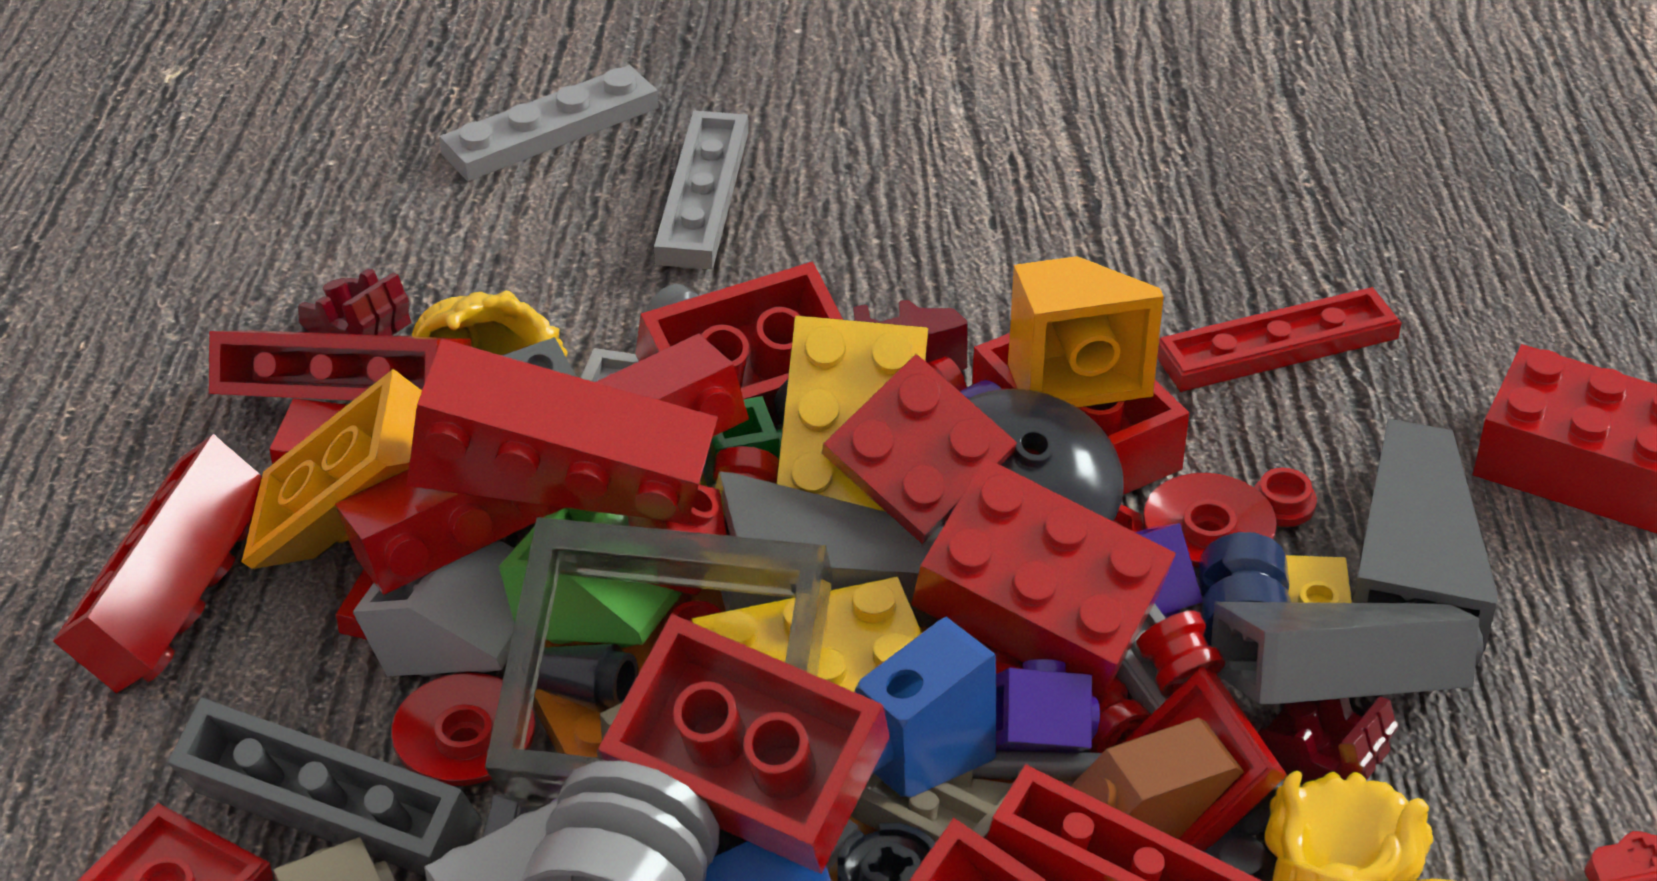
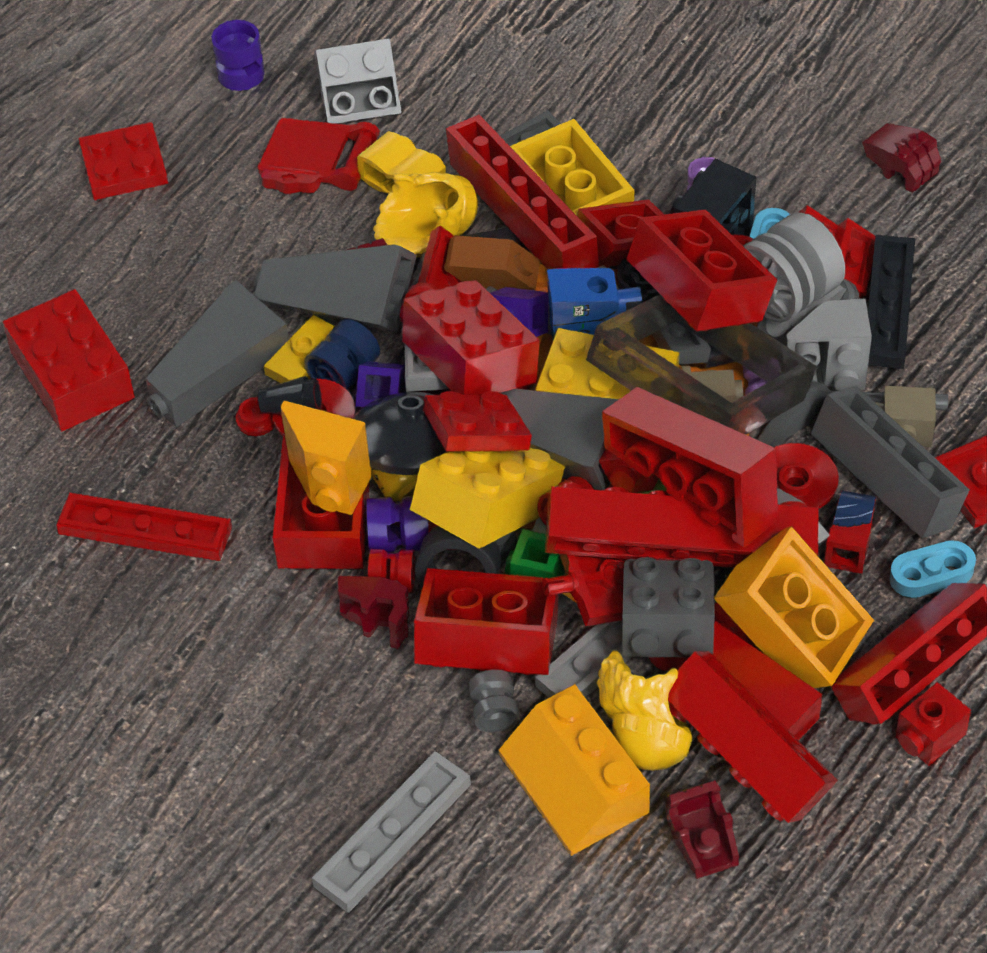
camera: 145 degrees left, 10 degrees up
(106, 506) = (932, 724): none -> red brick
(218, 675) = (930, 570): none -> medium azure plate
(340, 689) = (850, 531): none -> leg
(582, 311) = (575, 771): none -> light orange slope
(1238, 488) = (298, 391): none -> black cone

